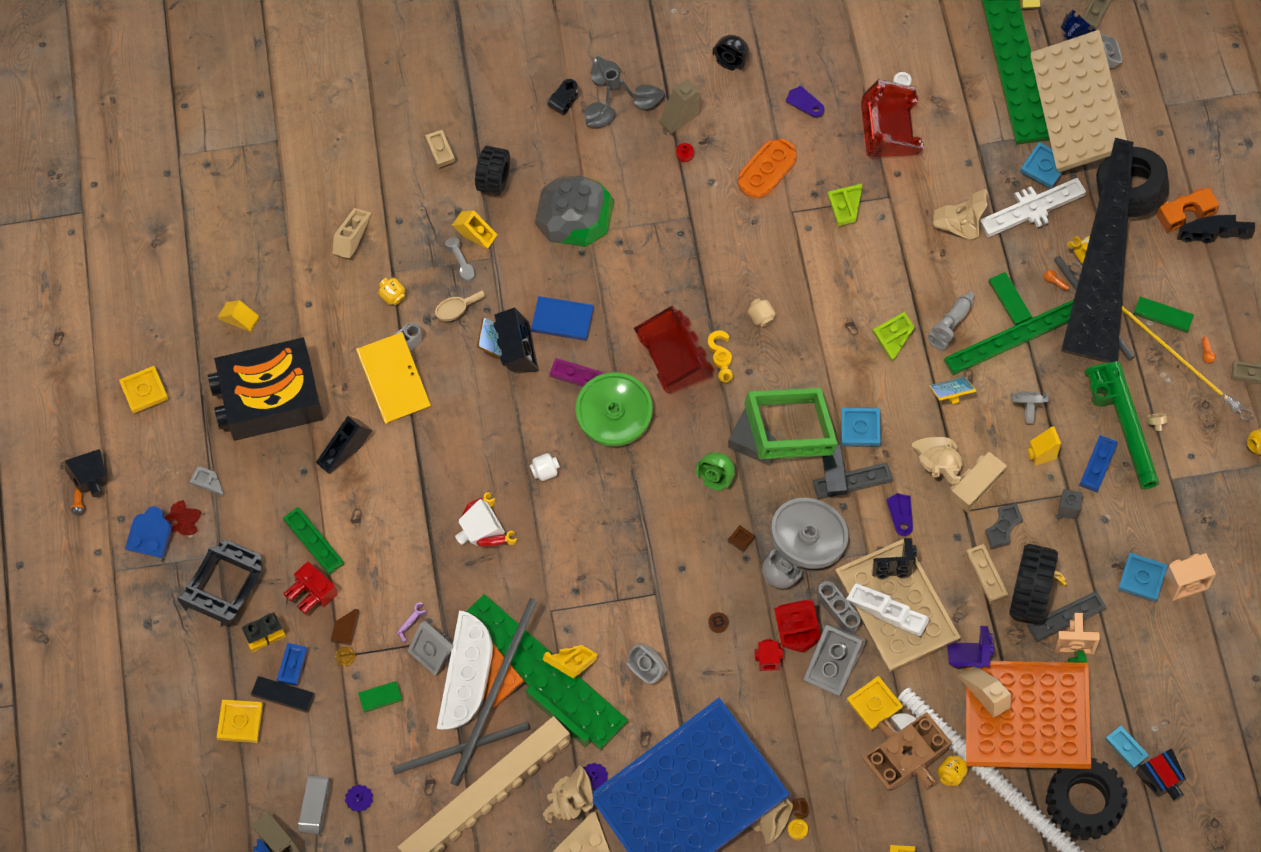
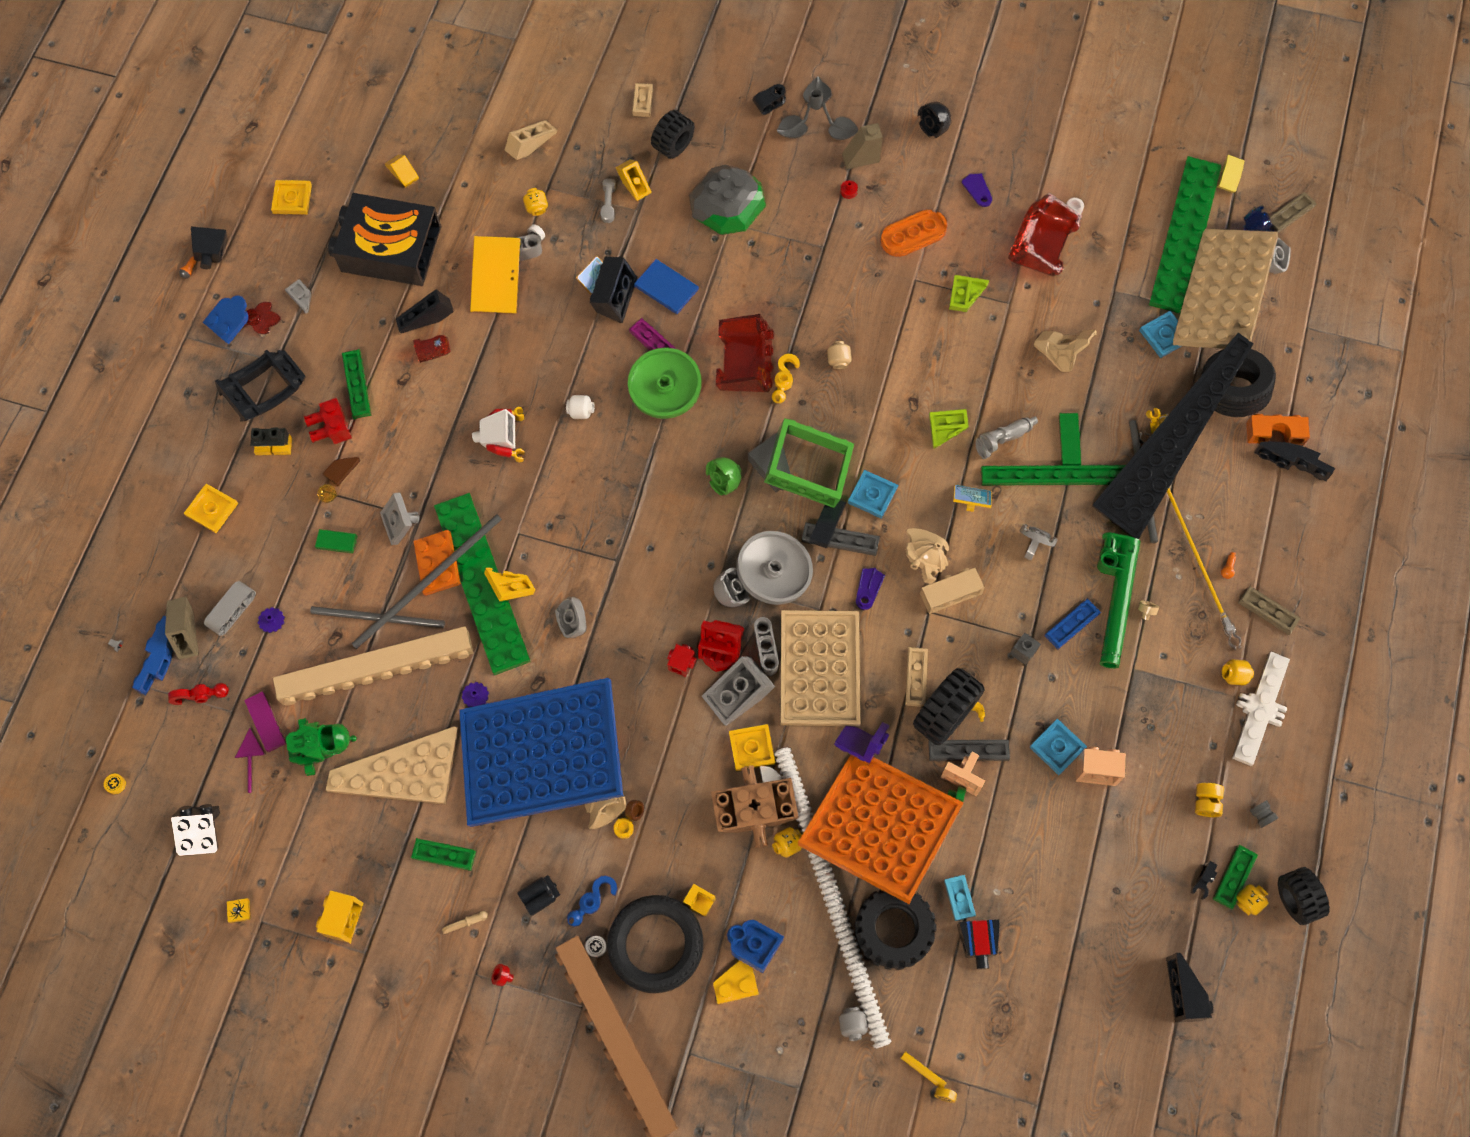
camera: 25 degrees right, 5 degrees up
(282, 694) = (259, 502): black tile -> none
(292, 664) = (279, 480): blue plate -> none
(369, 474) = (432, 348): none -> clear red leg
(407, 318) = (535, 229): none -> white tile
(410, 620) = (397, 487): lavender piece -> none
(455, 306) = (581, 238): tan piece -> none
(466, 673) = (413, 553): white plate -> none
(551, 710) = (472, 628): green tile -> none
(570, 796) = (442, 704): tan helmet -> none
(718, 622) = (654, 610): reddish brown tile -> none
(741, 538) = (715, 545): reddish brown tile -> none
(888, 610) = (806, 668): white slope -> none
(896, 566) = (837, 635): black bracket -> none
(987, 690) = (854, 784): tan slope -> none
(999, 533) = (946, 646): dark grey tile -> none
(1032, 207) = (1133, 366): white hinge -> none
(1044, 447) = (1028, 586): yellow slope -> none
(1051, 276) = (1118, 436): orange piece -> none
(1163, 314) = (1205, 515): green tile -> none

